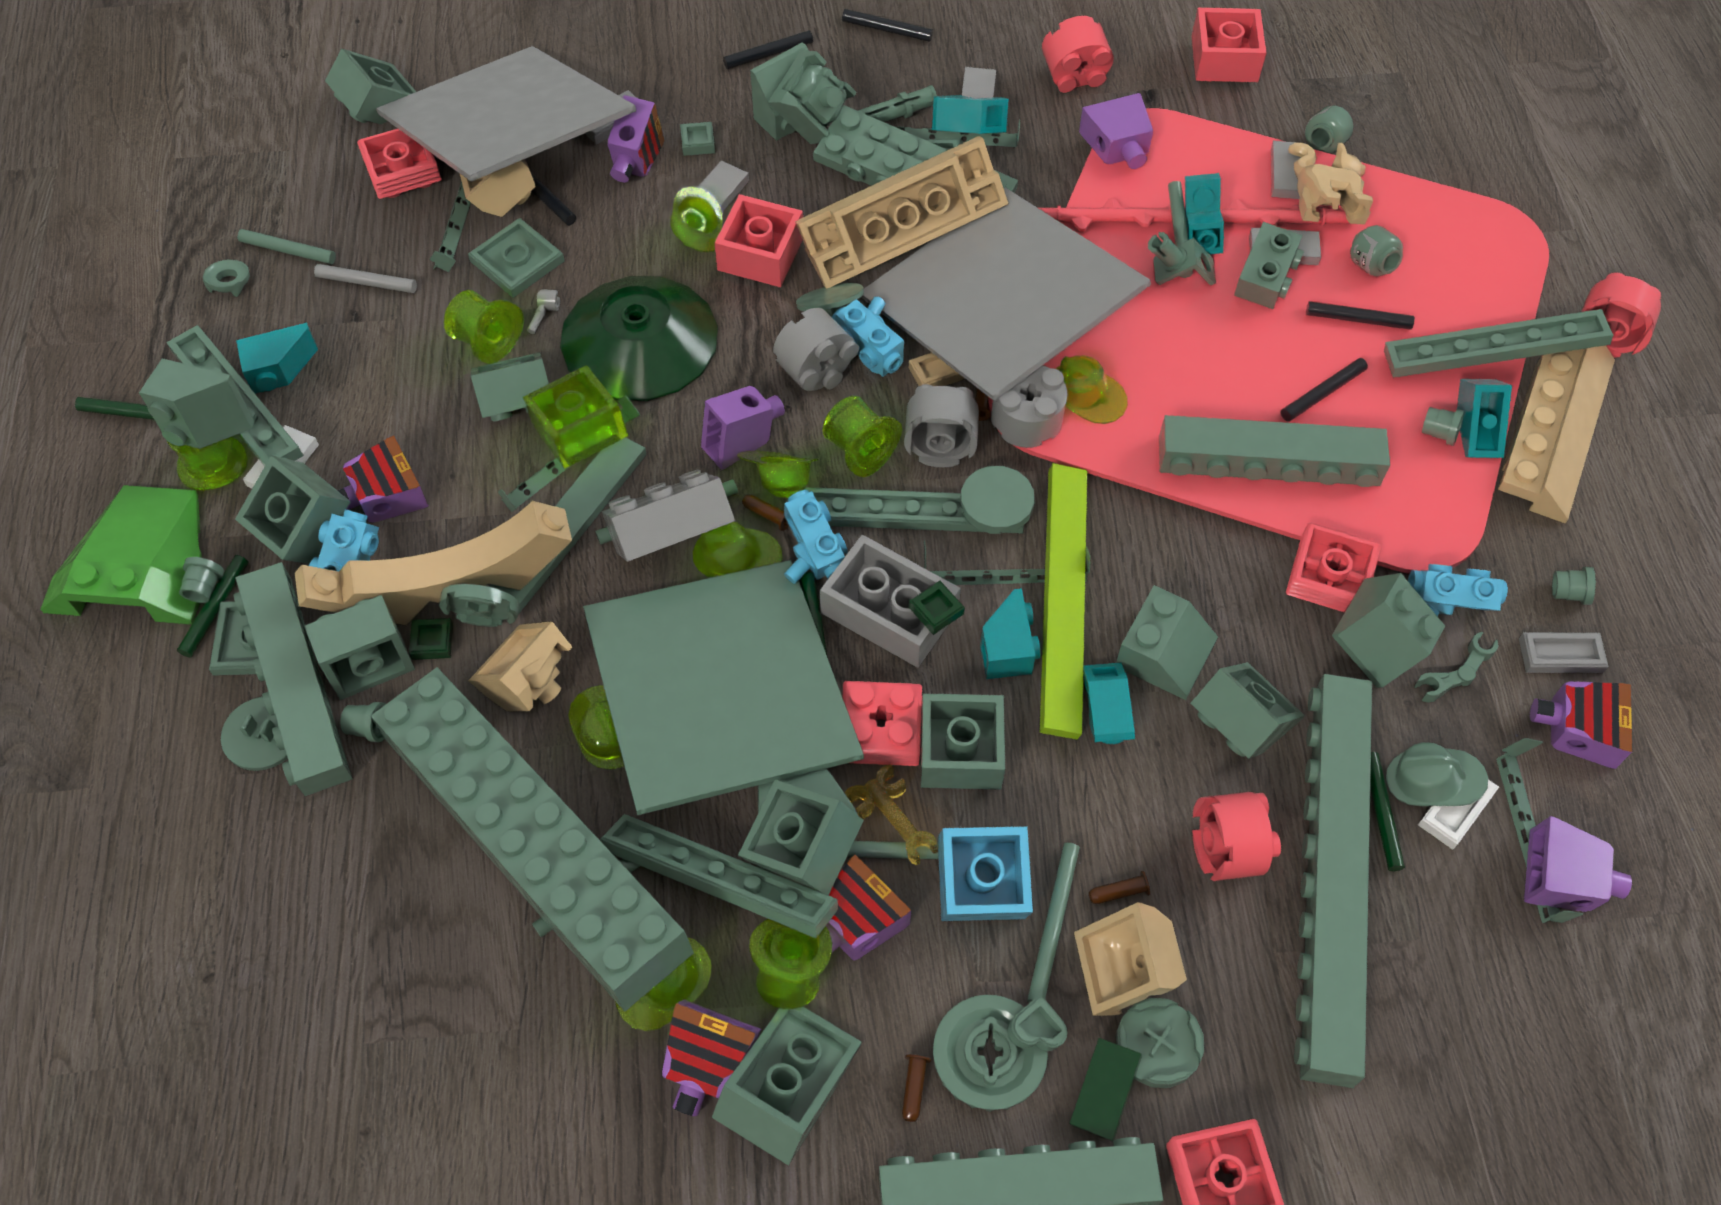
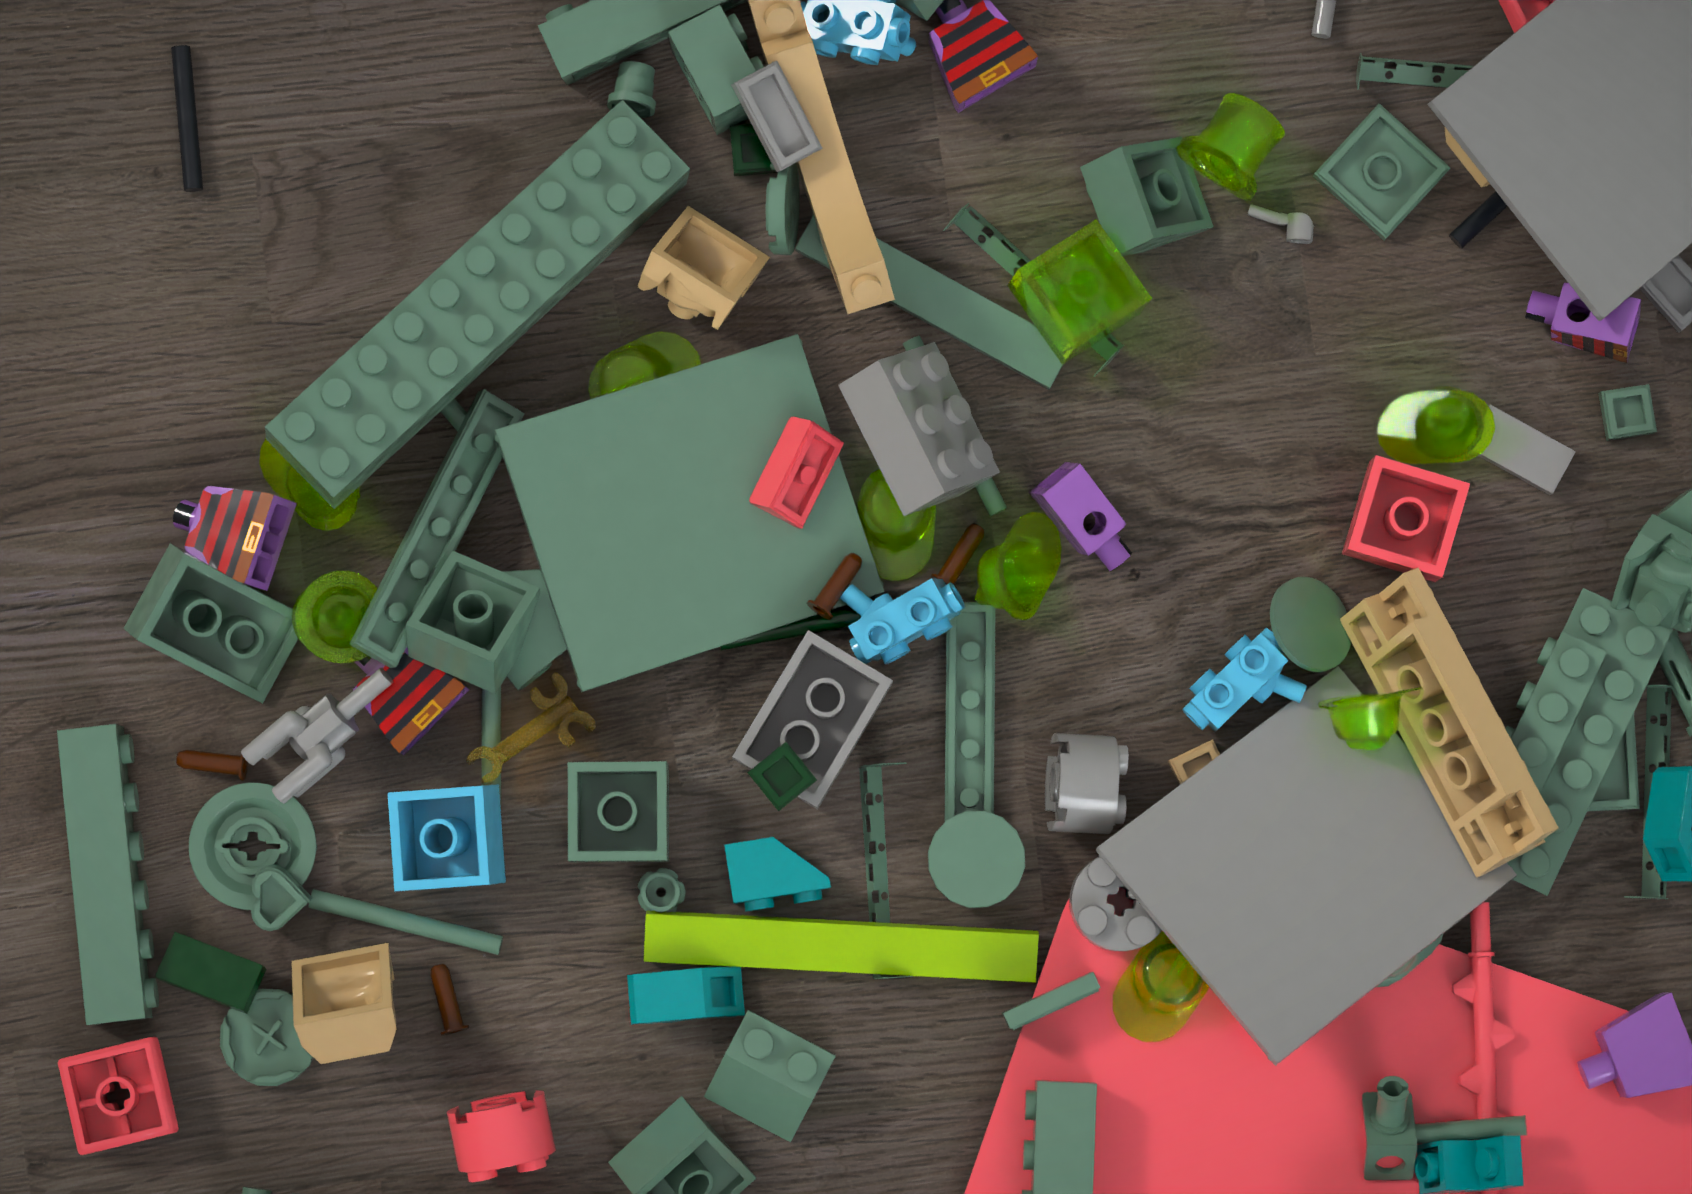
camera: 90 degrees right, 25 degrees up
(318, 1099) = (187, 118): none -> black bar
(404, 586) = (776, 116): none -> light grey tile
(640, 336) = (1235, 410): dark green dish -> none
(691, 607) = (796, 471): none -> coral slope
(786, 584) = (836, 586): none -> reddish brown piece
(815, 350) = (1201, 608): light grey brick -> none
(861, 435) = (1068, 674): clear neon green piece -> none
(894, 982) = (315, 735): none -> light grey plant
(899, 253) = (1365, 719): none -> clear neon green piece
(901, 709) = (673, 737): coral brick -> none
(1024, 711) = (662, 878): none -> sand green plate
(1103, 451) = (1051, 1001): none -> sand green tile

